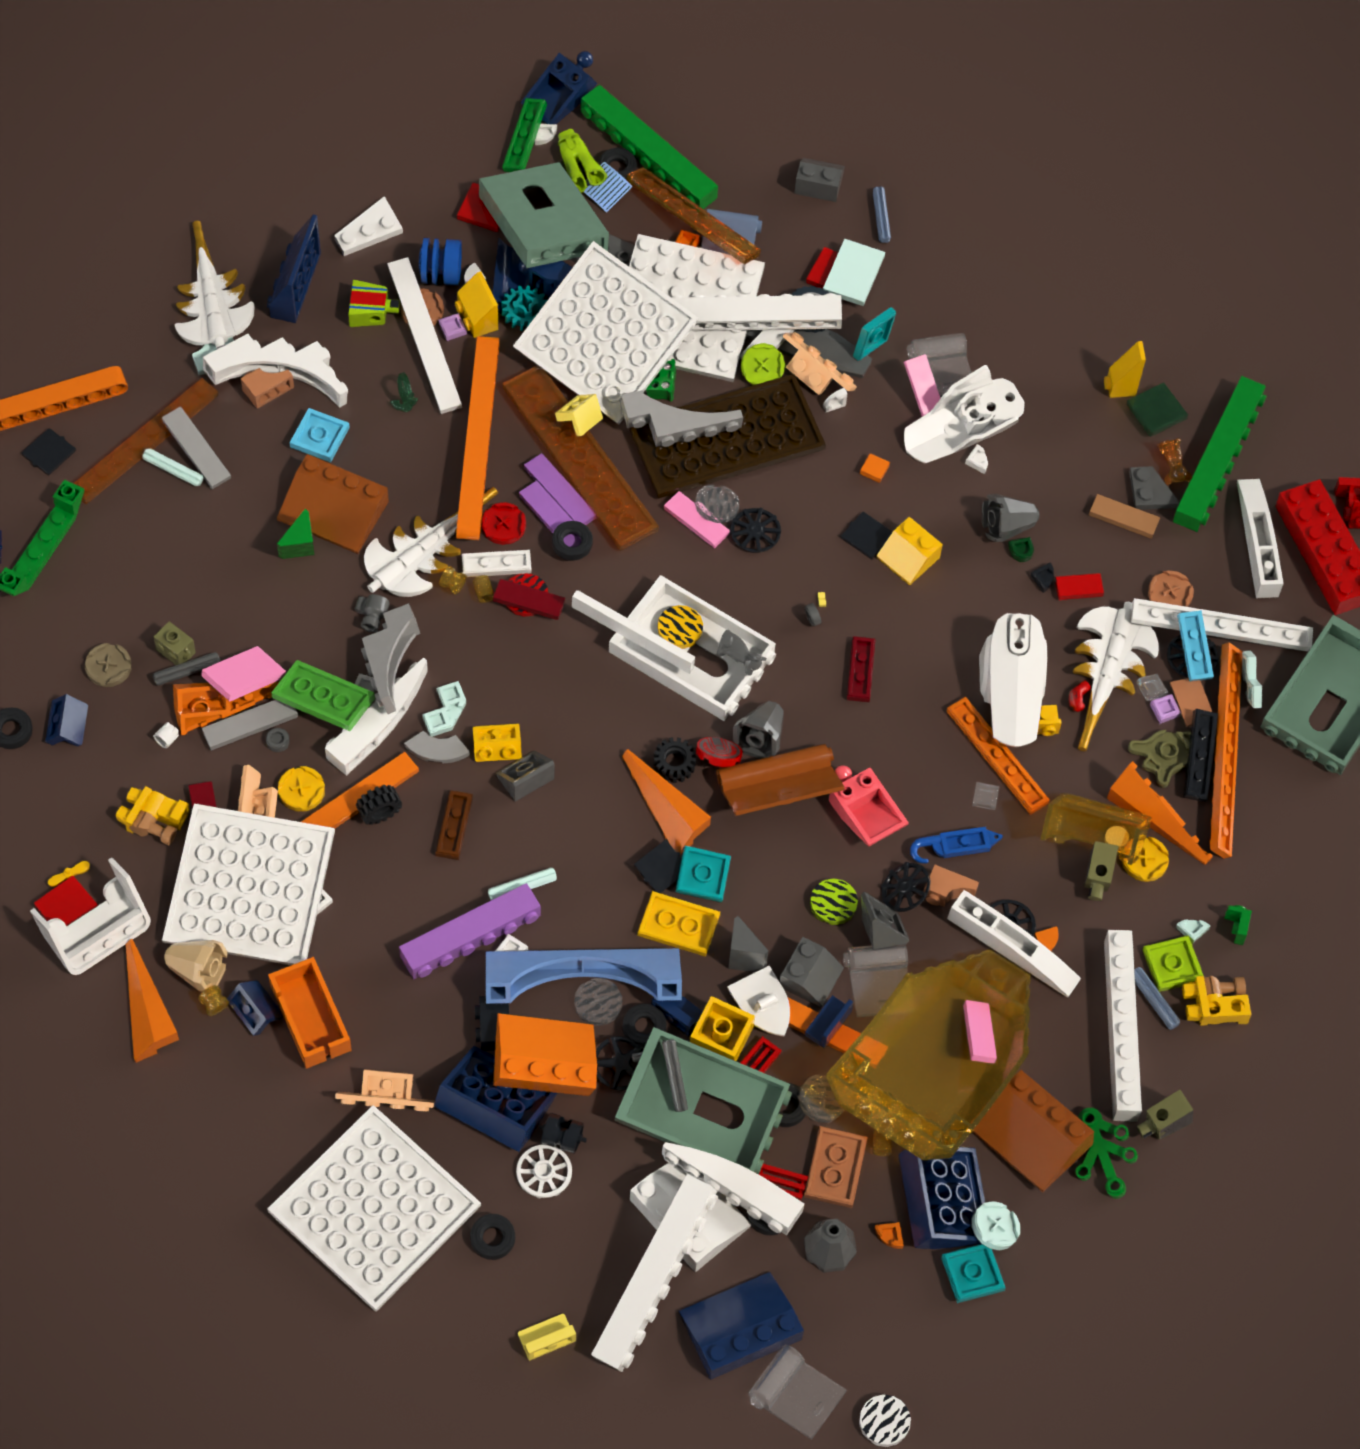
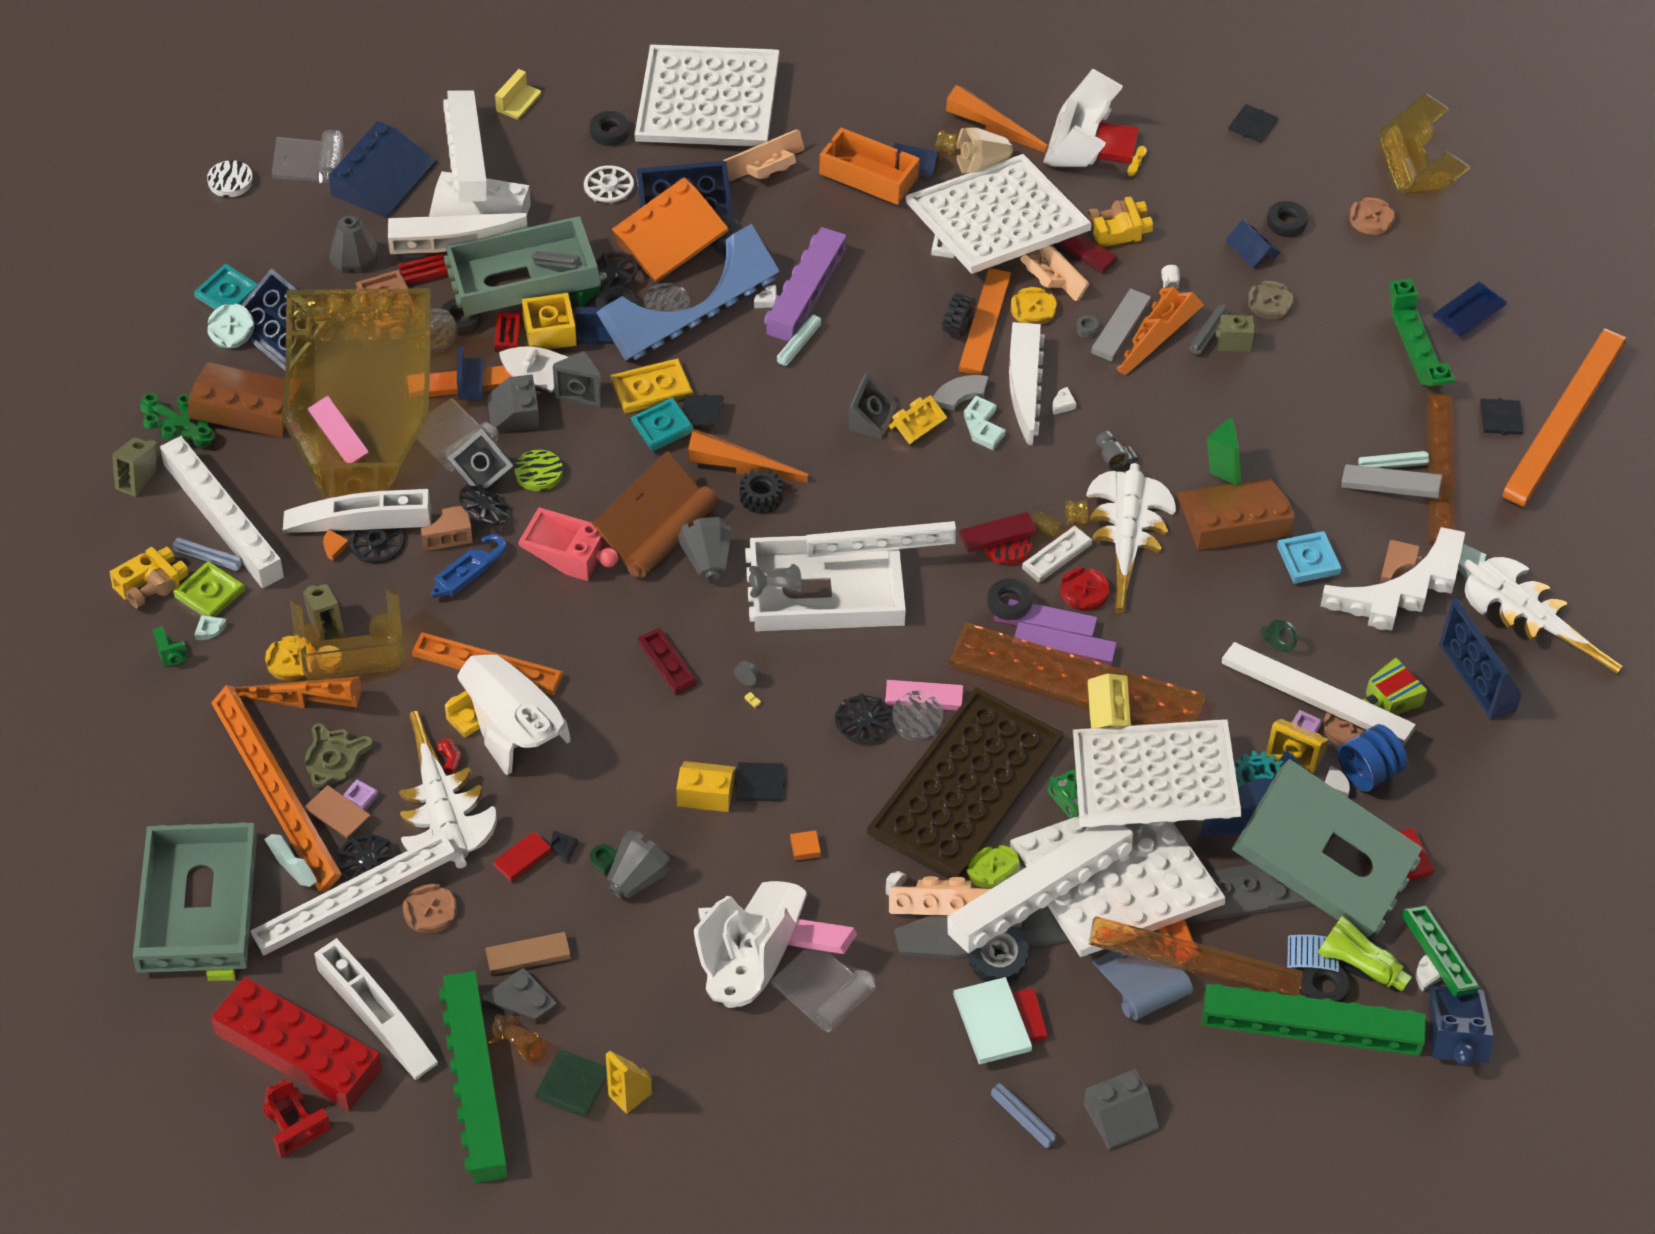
camera: 145 degrees right, 10 degrees down
(243, 673) = (1159, 339): bright pink tile -> none
(323, 695) = (1081, 356): bright green plate -> none
(369, 228) = (1475, 767): white wing -> none
(386, 650) = (1064, 408): light grey arch -> none
(454, 825) = (892, 350): reddish brown tile -> none
(477, 438) = (1178, 635): orange beam -> none
(563, 1133) = (614, 201): black wheel -> none
(675, 424) = (1019, 740): light grey arch -> none
(680, 626) = (853, 592): yellow tile -> none
(719, 751) = (730, 505): red tile -> none
(874, 334) = (913, 952): teal plate -> none
(890, 1234) = (312, 283): orange tile -> none
(985, 796) = (472, 623): clear tile -> none
(1151, 687) = (385, 803): clear tile -> none
(1195, 646) = (364, 845): medium azure plate -> none
(1200, 755) = (296, 766): black tile -> none

